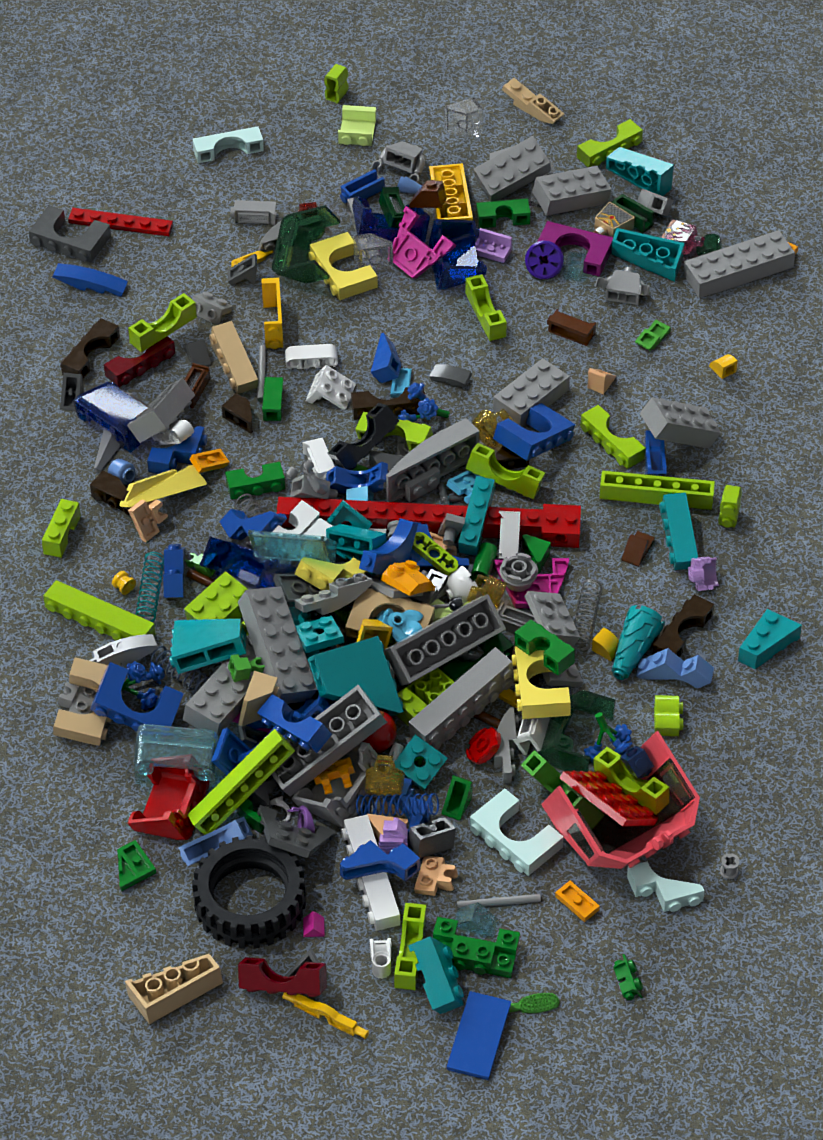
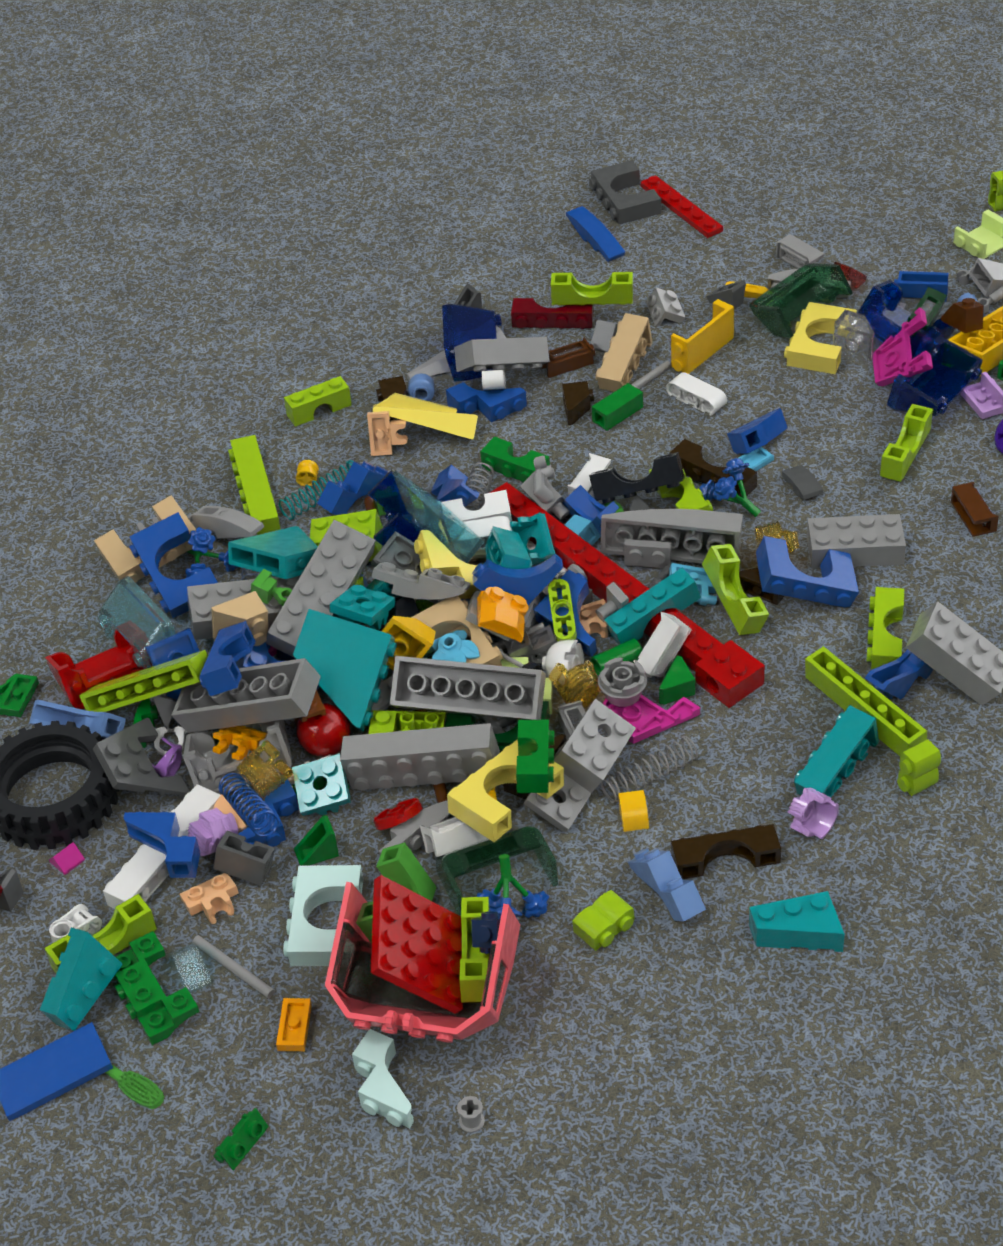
camera: 50 degrees right, 5 degrees down
(101, 335) = (501, 287): dark brown arch -> none
(209, 146) = (827, 186): light aqua arch -> none
(209, 460) = (498, 422): light orange plate -> none
(332, 387) = (679, 425): white bracket -> none
(599, 380) = (943, 571): light nougat slope -> none
(637, 548) = (780, 746): reddish brown slope -> none
(637, 636) = (667, 821): teal cone -> none

